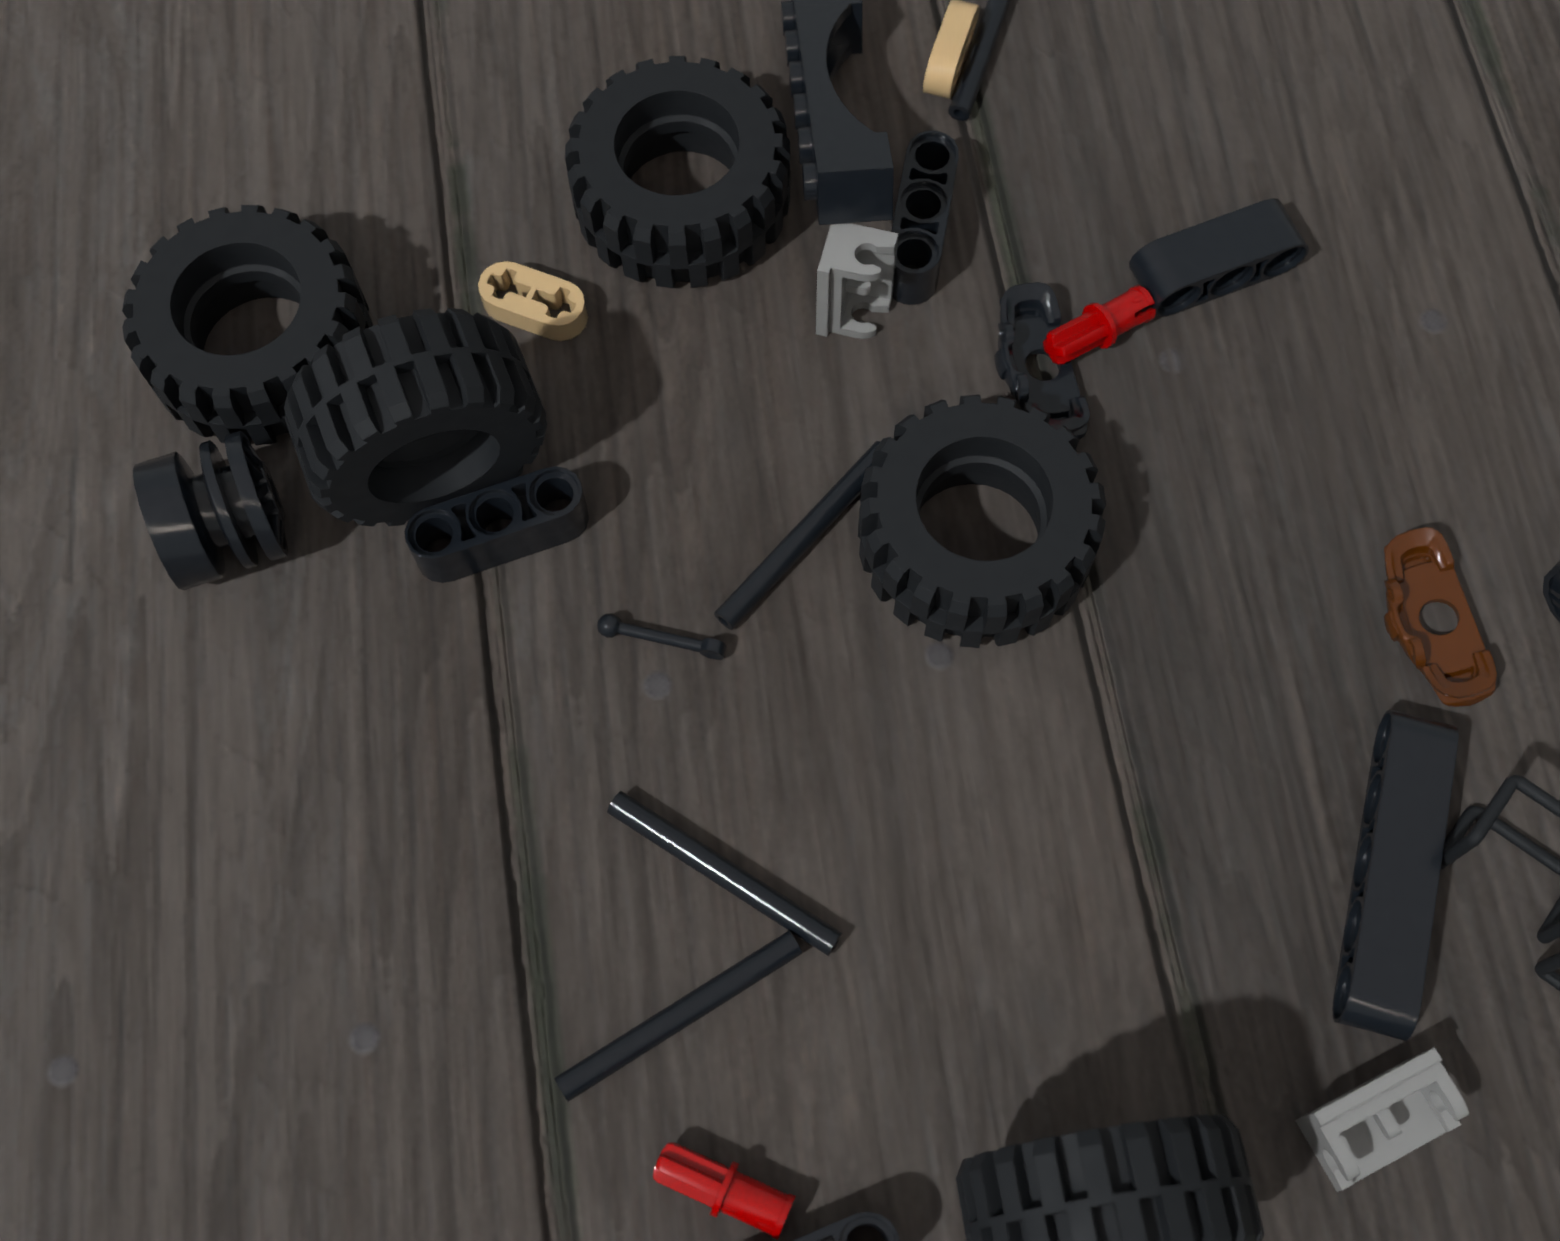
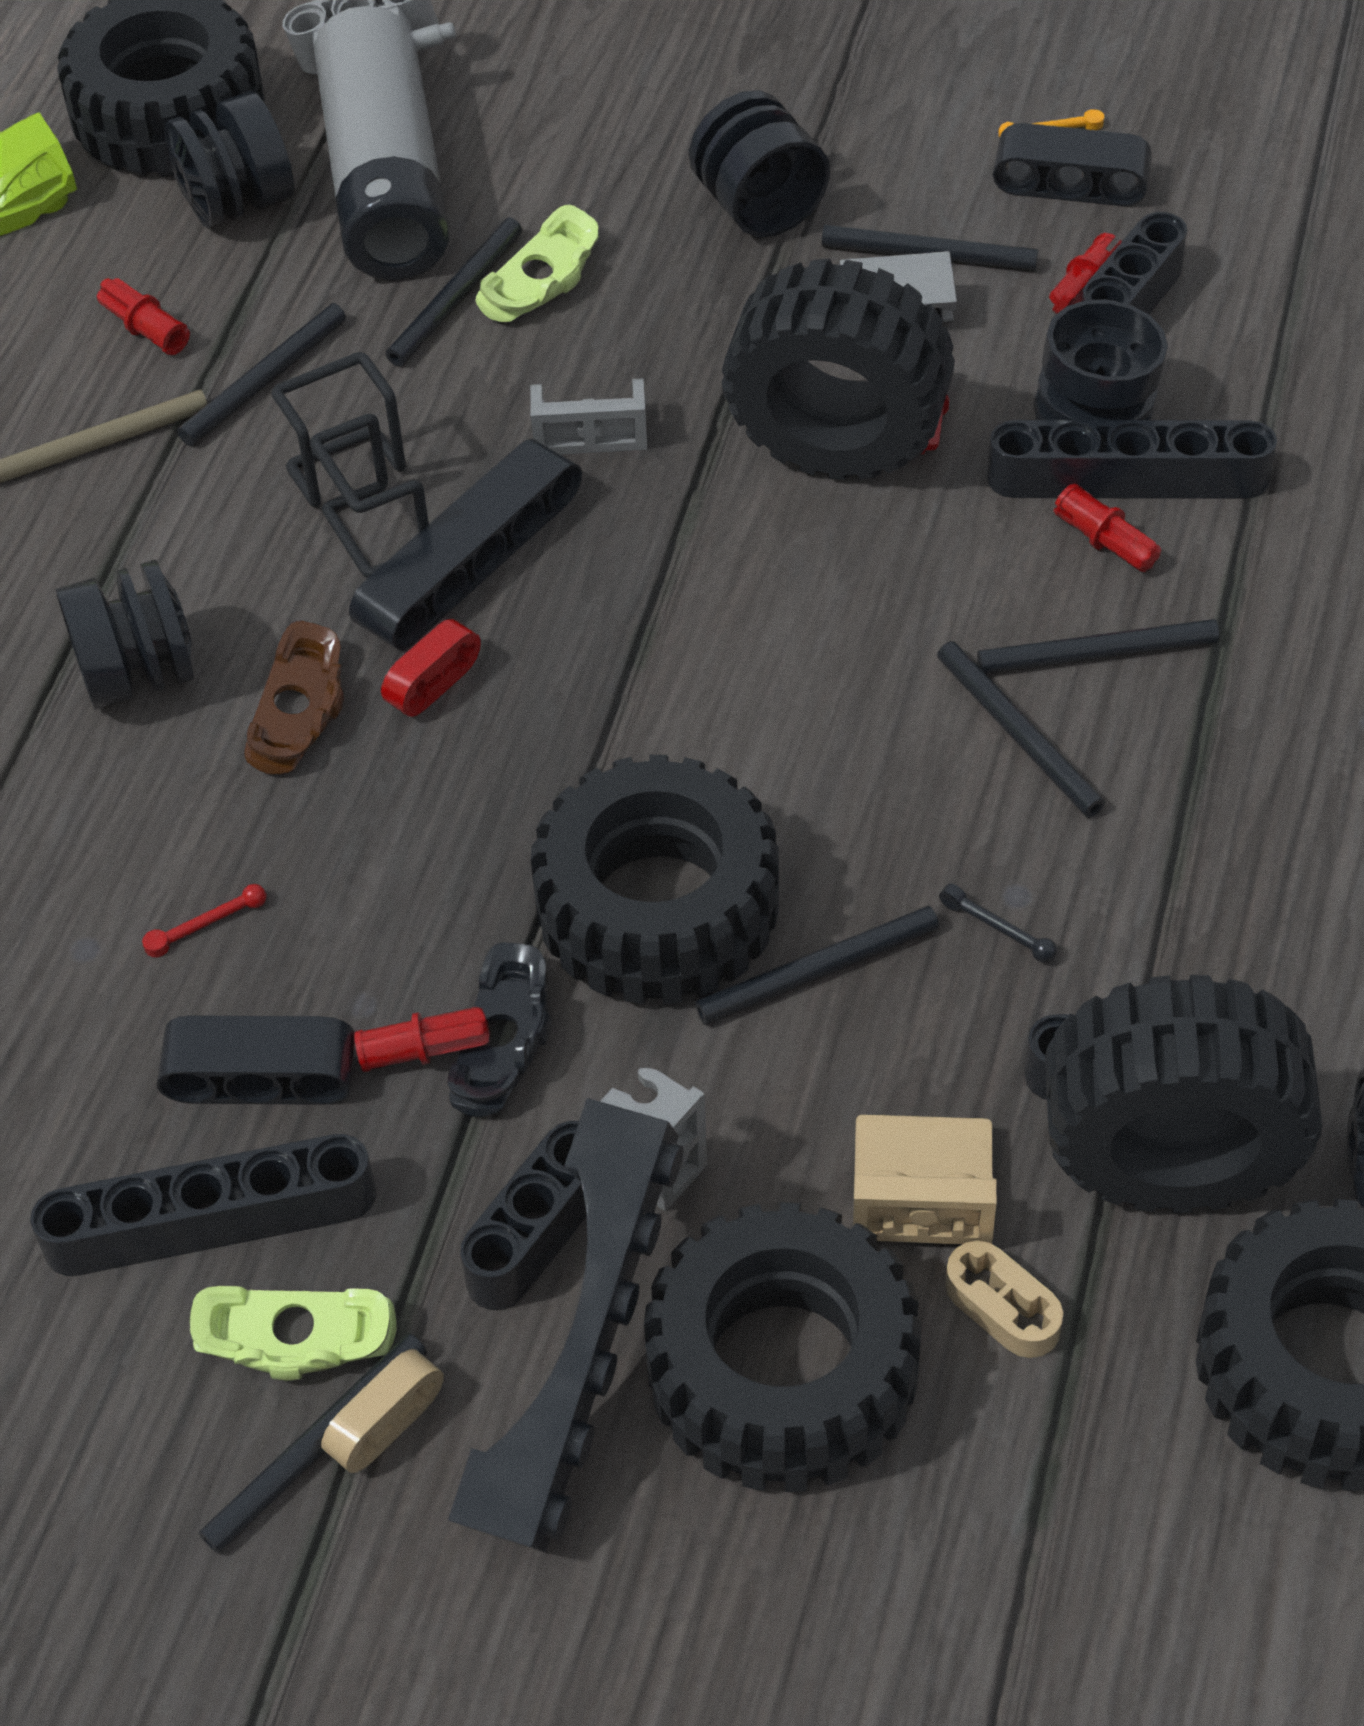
camera: 155 degrees left, 15 degrees down
(628, 354) = (924, 1178): none -> tan bracket
(1088, 72) = (241, 1328): none -> yellowish green piece
(1174, 133) = (175, 1191): none -> black beam
(1330, 696) = (430, 667): none -> red beam
(1376, 345) = (157, 942): none -> red hinge

